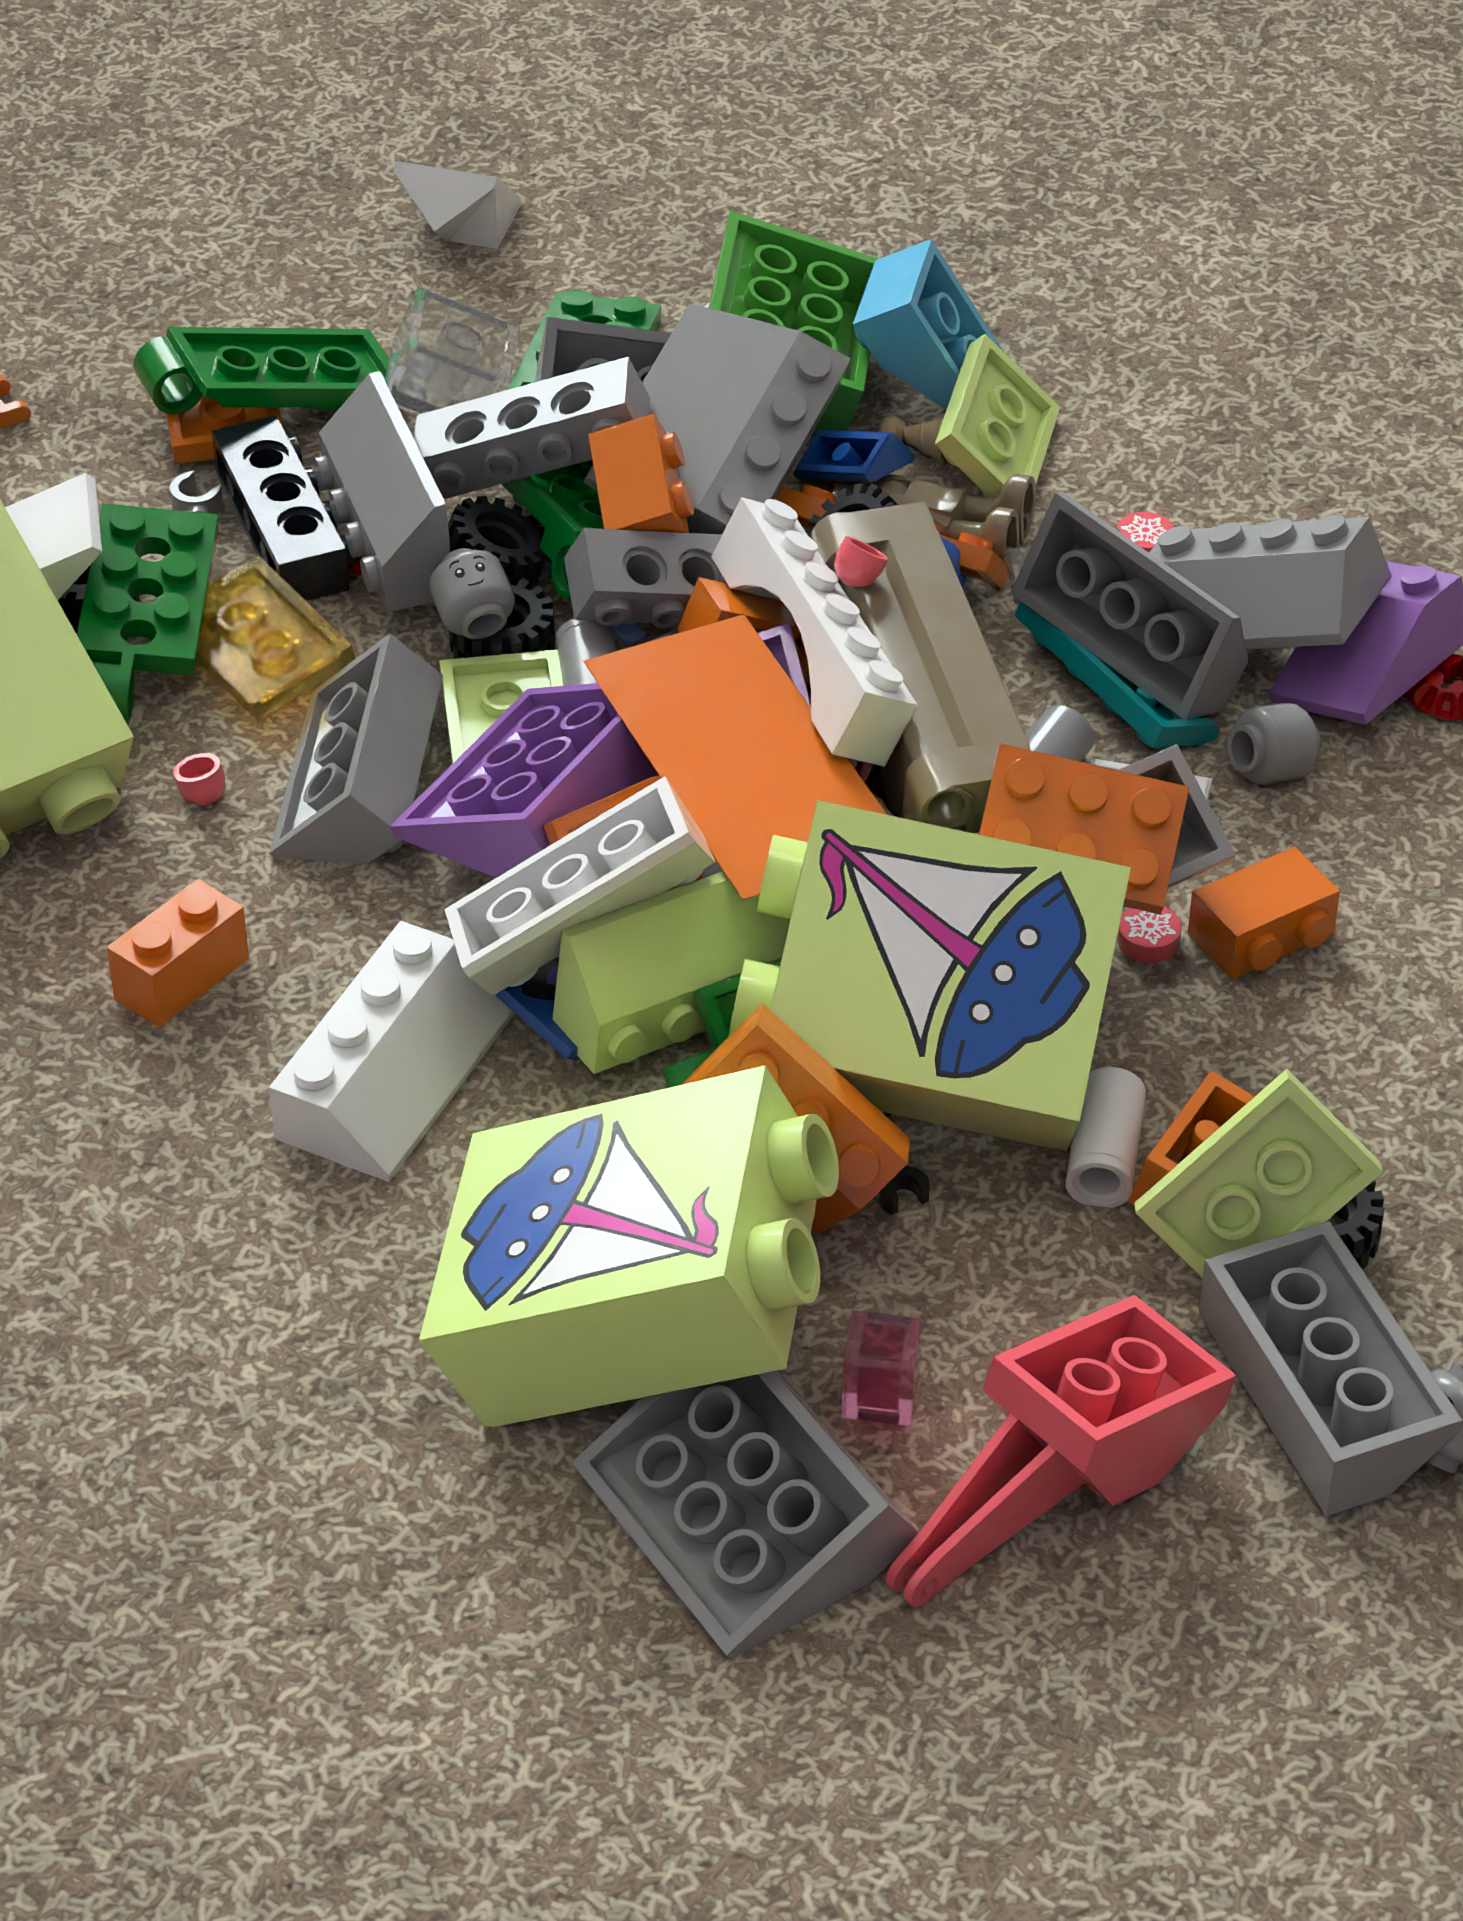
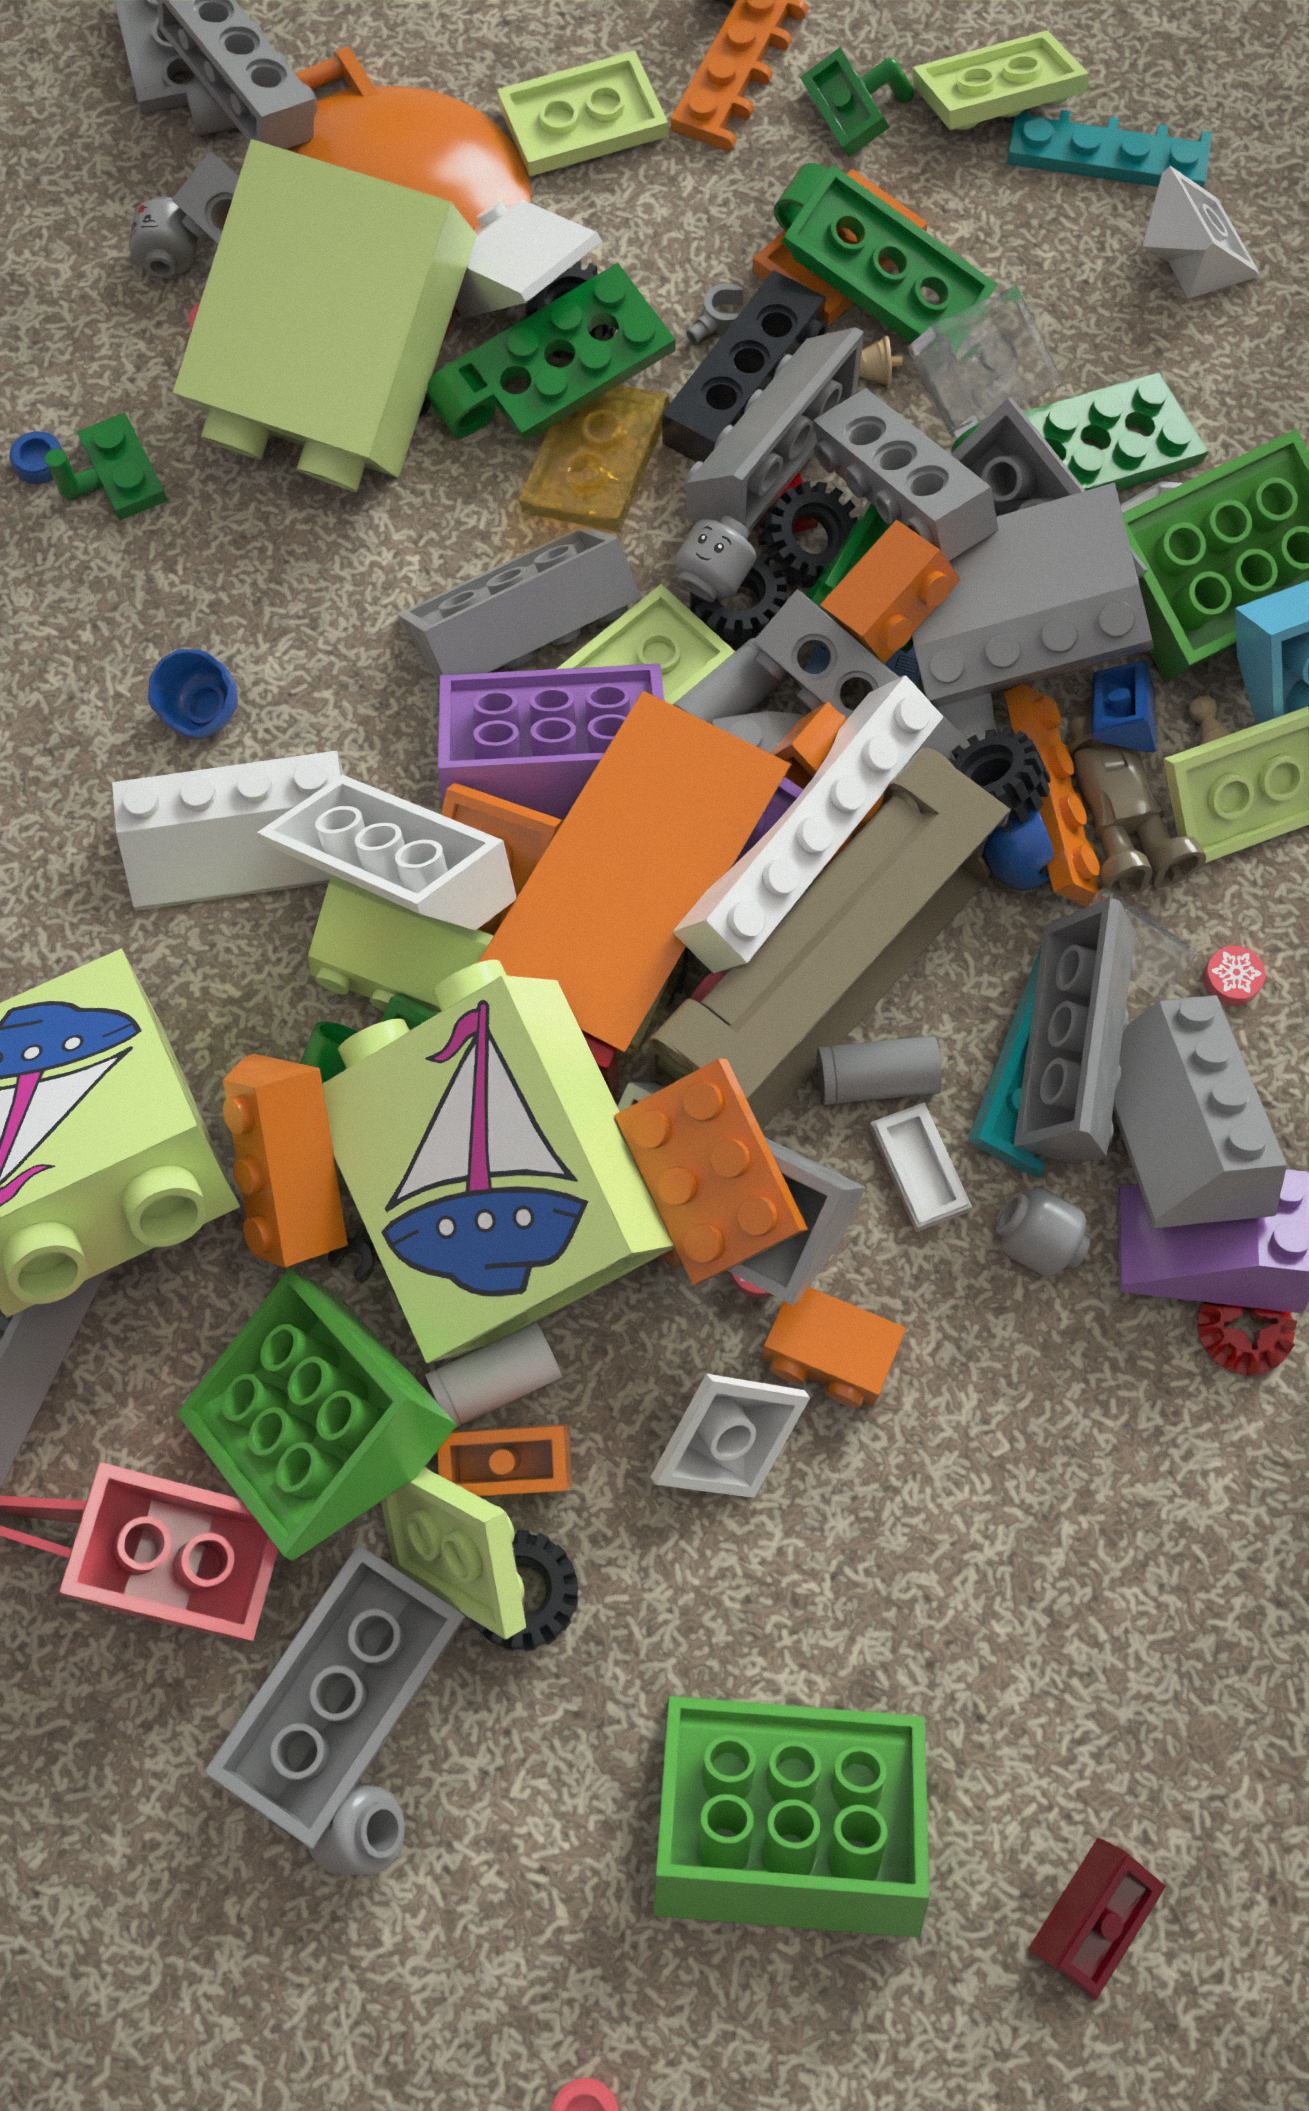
camera: 55 degrees right, 25 degrees up
(78, 318) = (847, 99): none -> green plate
(170, 225) = (1000, 80): none -> yellowish green plate
(178, 952) = (236, 628): orange brick -> none
(200, 778) = (426, 520): coral hinge -> none
(217, 1010) = (193, 693): none -> blue hair
(304, 215) = (1105, 150): none -> teal hinge
(858, 563) = (885, 810): coral hinge -> none
(881, 1368) = (128, 1366): clear pink brick -> none
(1052, 1222) = (312, 1416): none -> bright green slope
(1291, 998) = (730, 1436): none -> white slope

